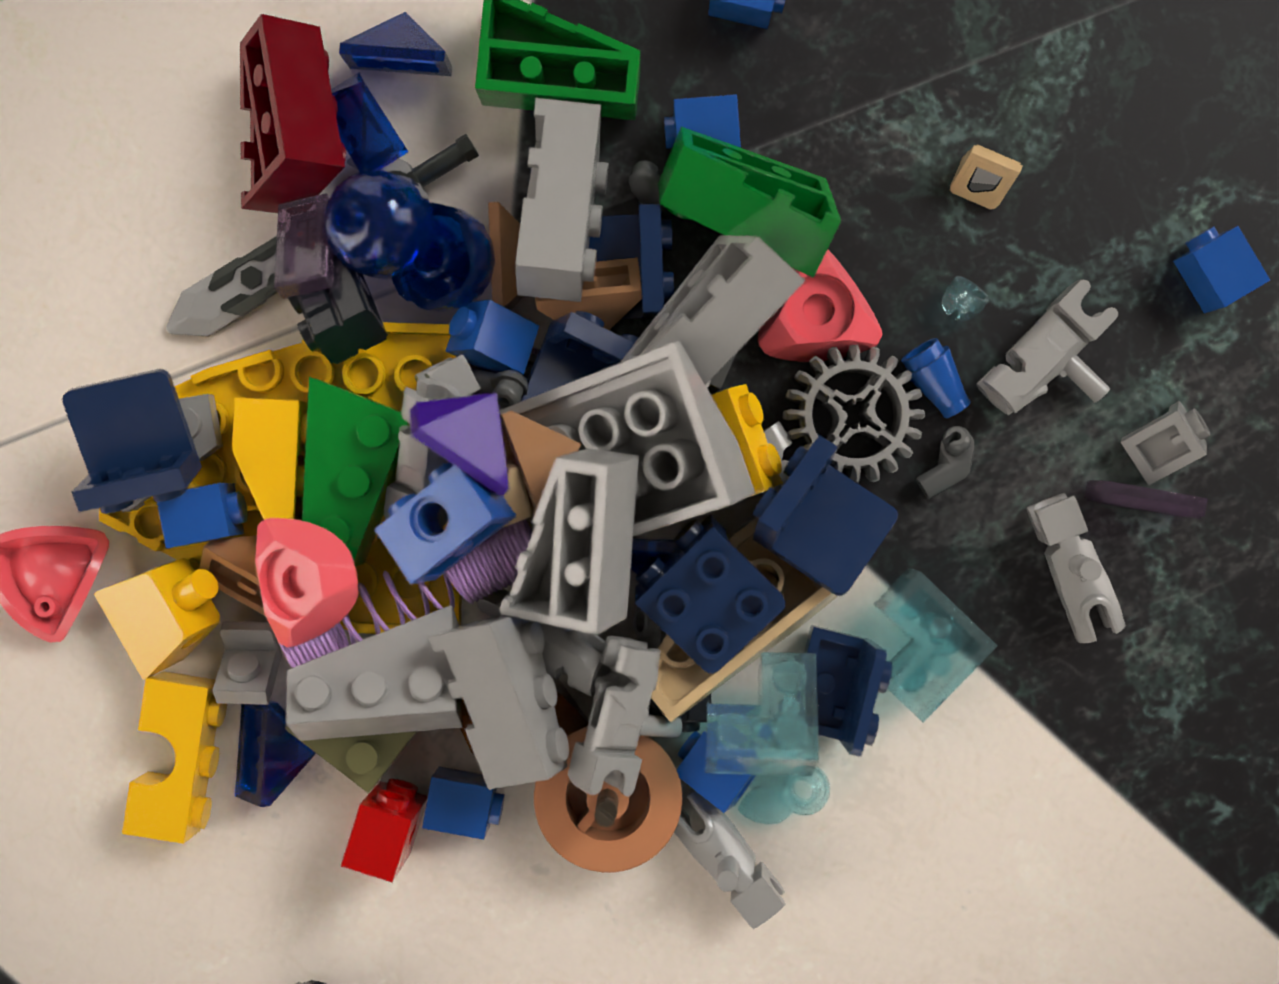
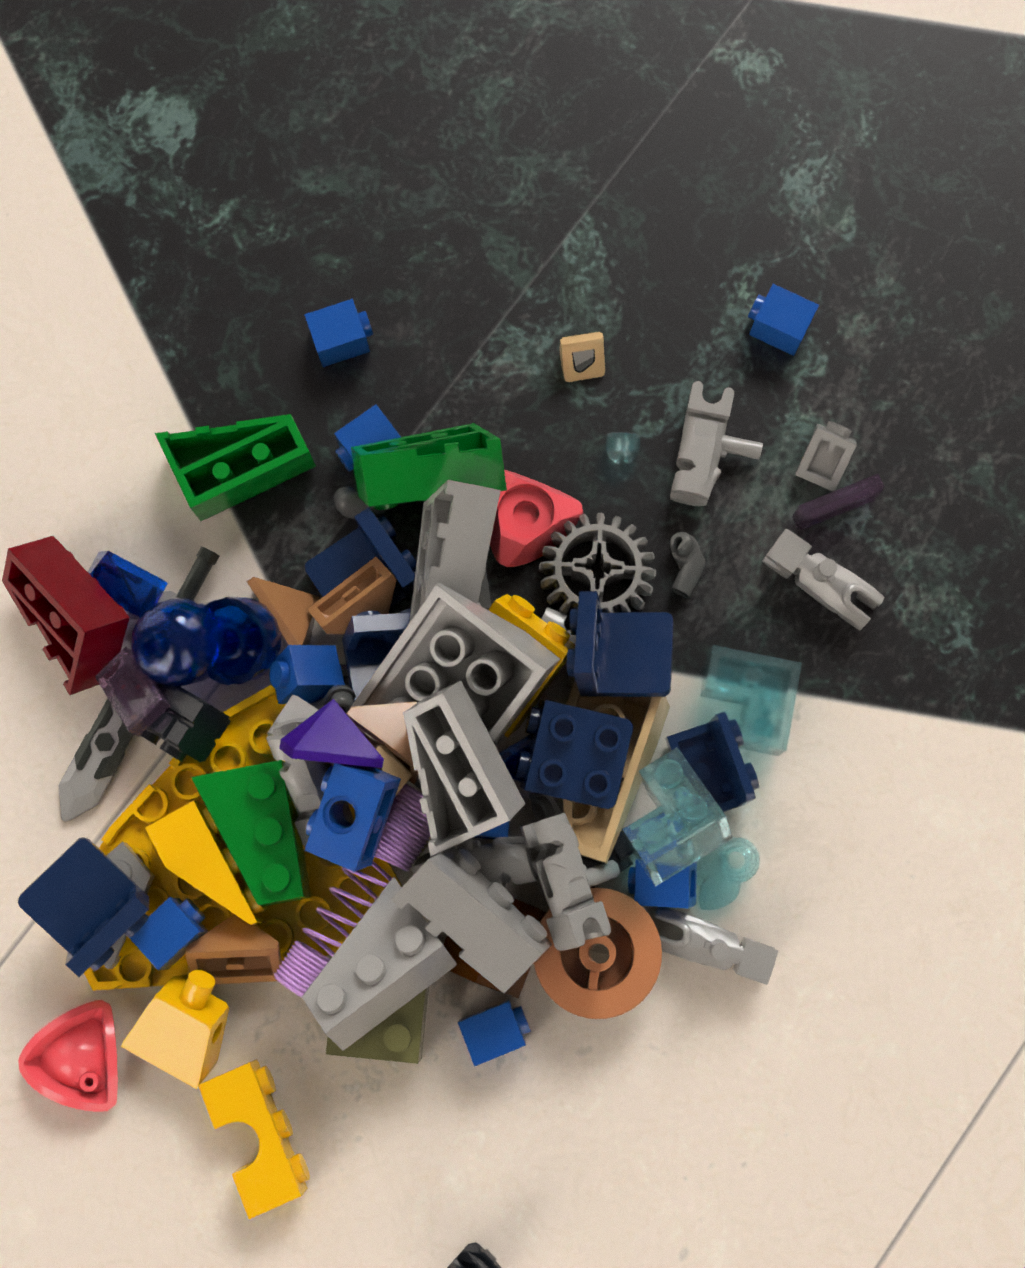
camera: 30 degrees left, 10 degrees down
(247, 663) = (267, 1027): light grey bracket -> none
(267, 754) = (323, 1088): clear blue slope -> none
(303, 579) = (275, 922): coral hat -> none
(385, 829) = (447, 1084): red brick -> none
(396, 47) = (116, 518): clear blue slope -> none
(561, 202) = (297, 549): light grey wedge -> none
(937, 376) = (639, 509): blue cone -> none

